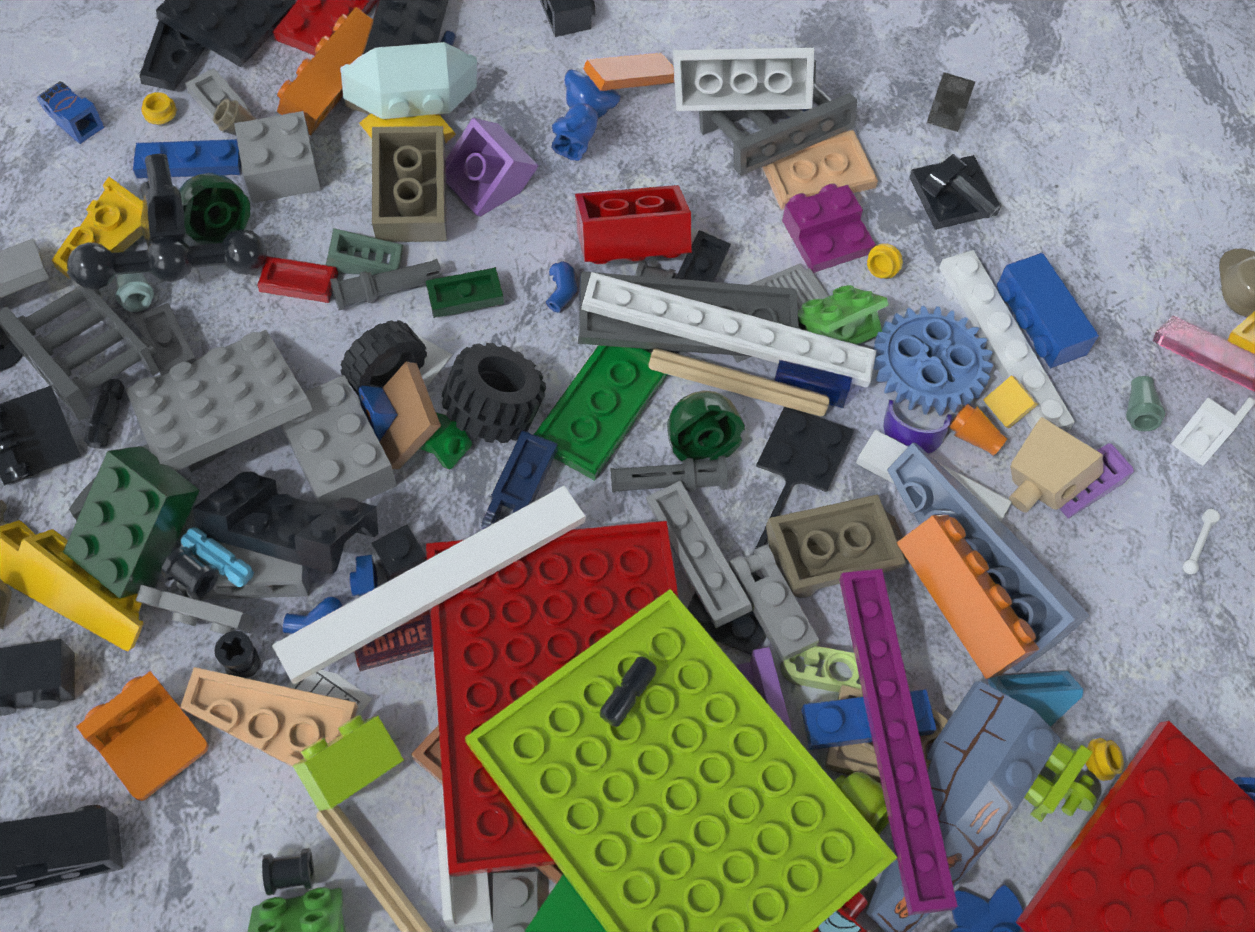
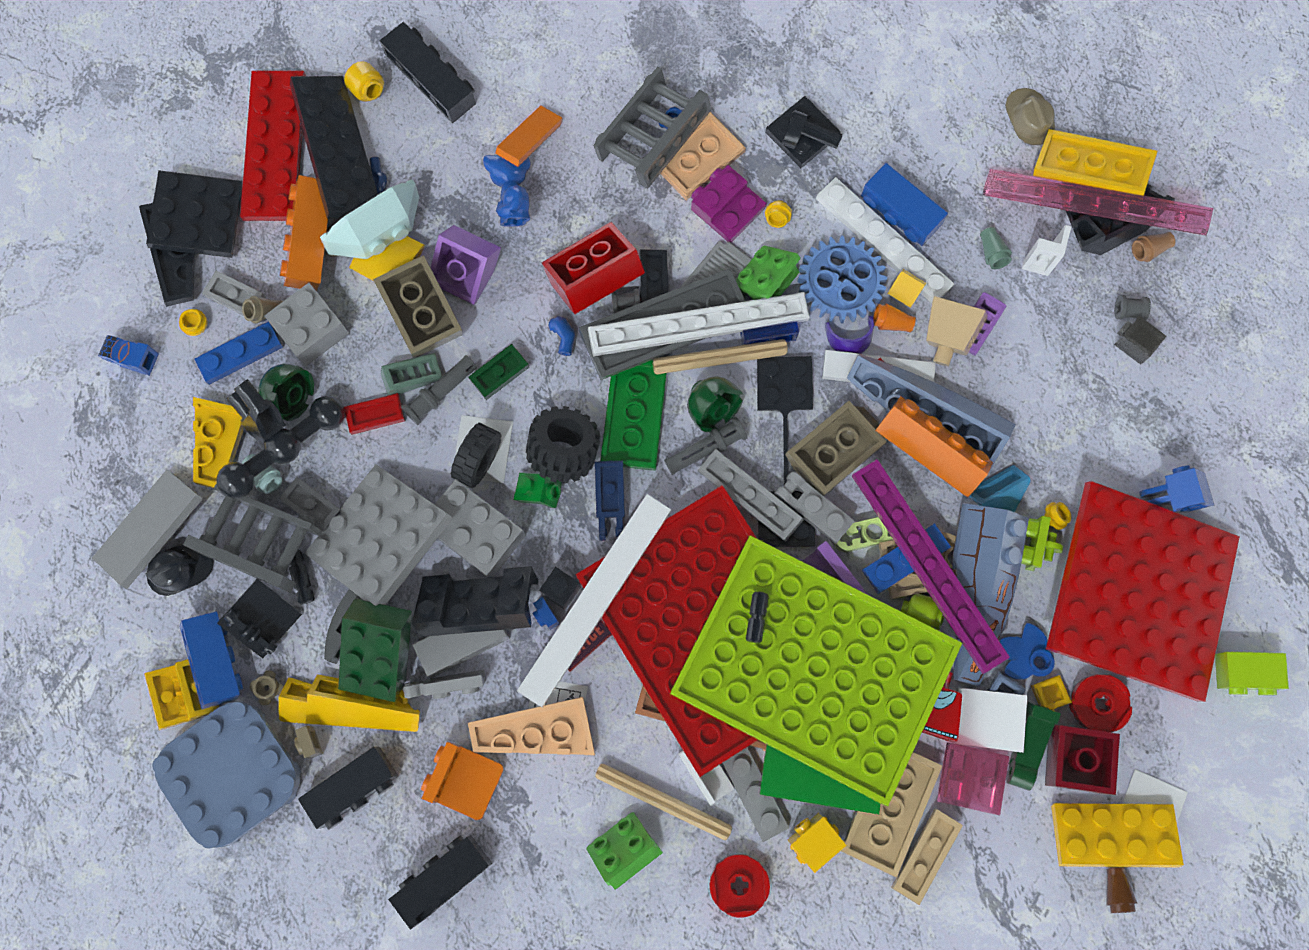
camera: 20 degrees left, 15 degrees up
(189, 572) = (434, 666): black bush -> none
(215, 554) = (444, 647): medium azure axle -> none
(234, 644) = (484, 695): black bush -> none
(288, 871) = (597, 818): black bush -> none
(295, 622) = (527, 654): blue arm -> none
(348, 762) = (600, 738): lime brick -> none
(377, 409) = (489, 491): blue slope -> none
(415, 415) = (509, 488): medium nougat tile -> none
(743, 79) = (621, 115): white slope -> none
(950, 102) = (770, 57): clear smoke brick -> none
(1209, 518) = (1065, 313): white hinge -> none

